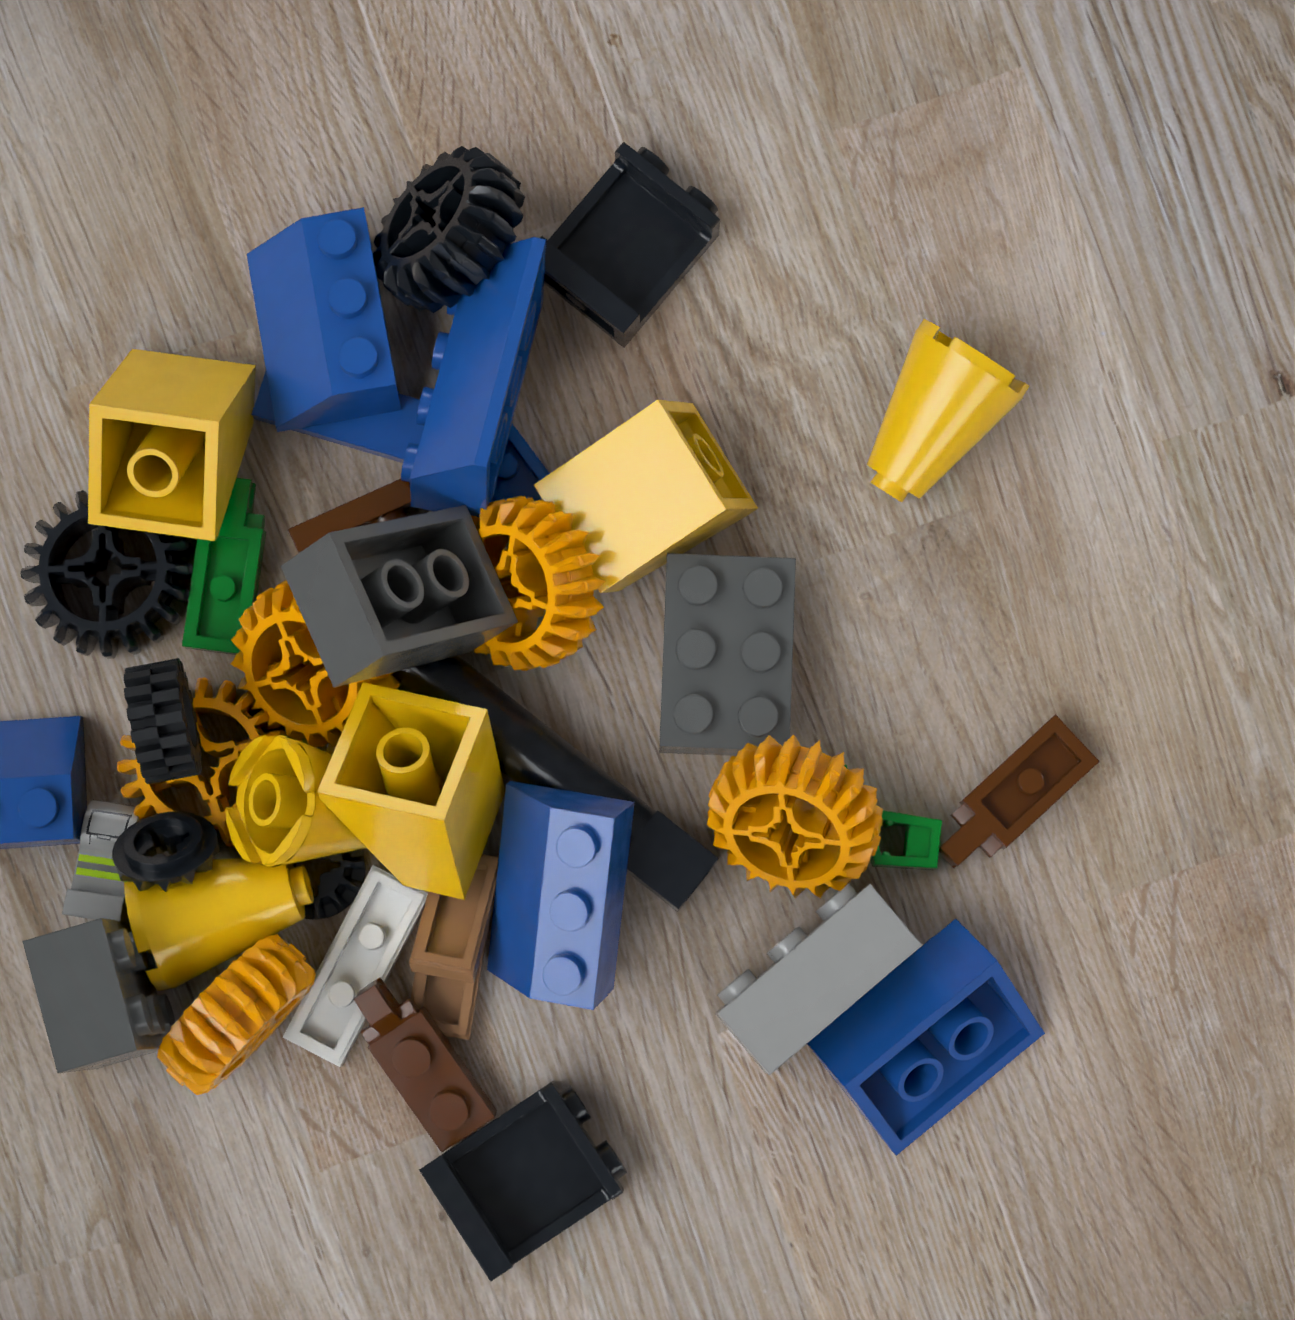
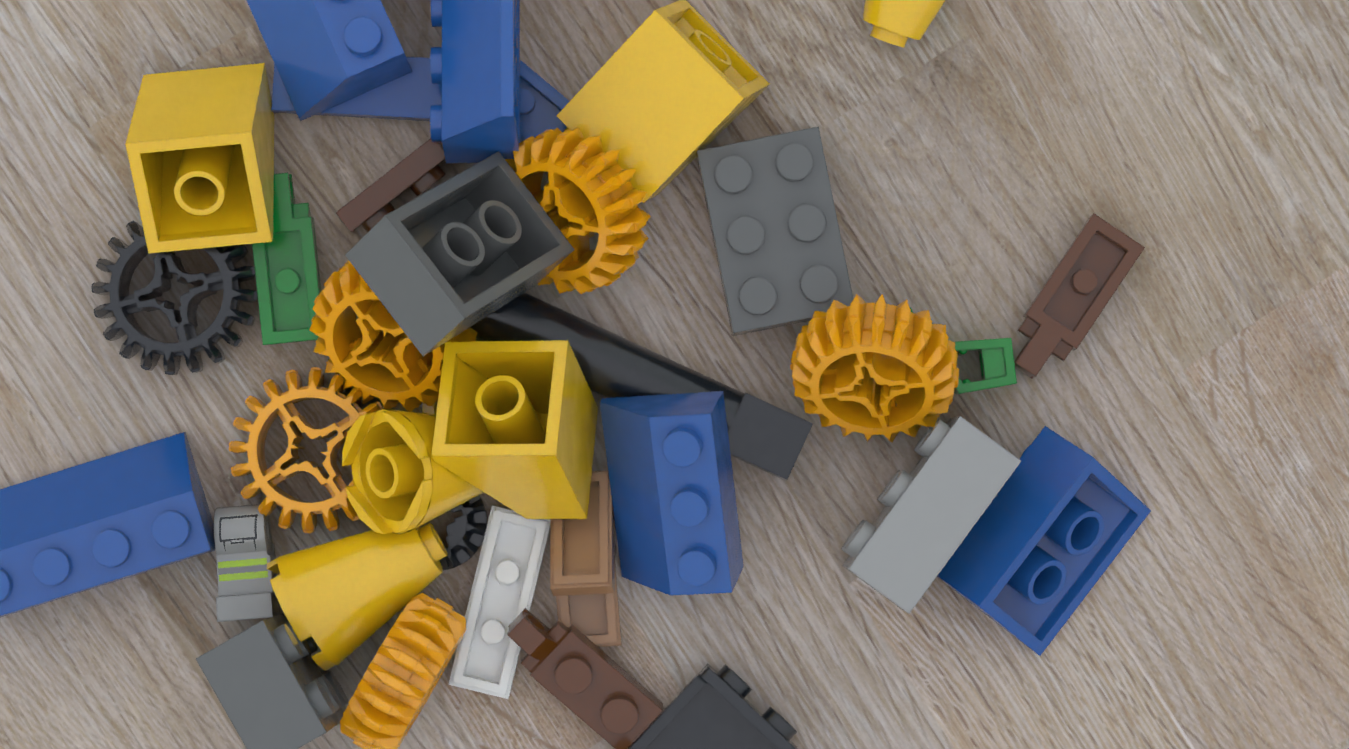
camera: 10 degrees left, 5 degrees up
(162, 721) = (268, 422): black tyre -> none
(182, 834) = (302, 522): black gear -> none

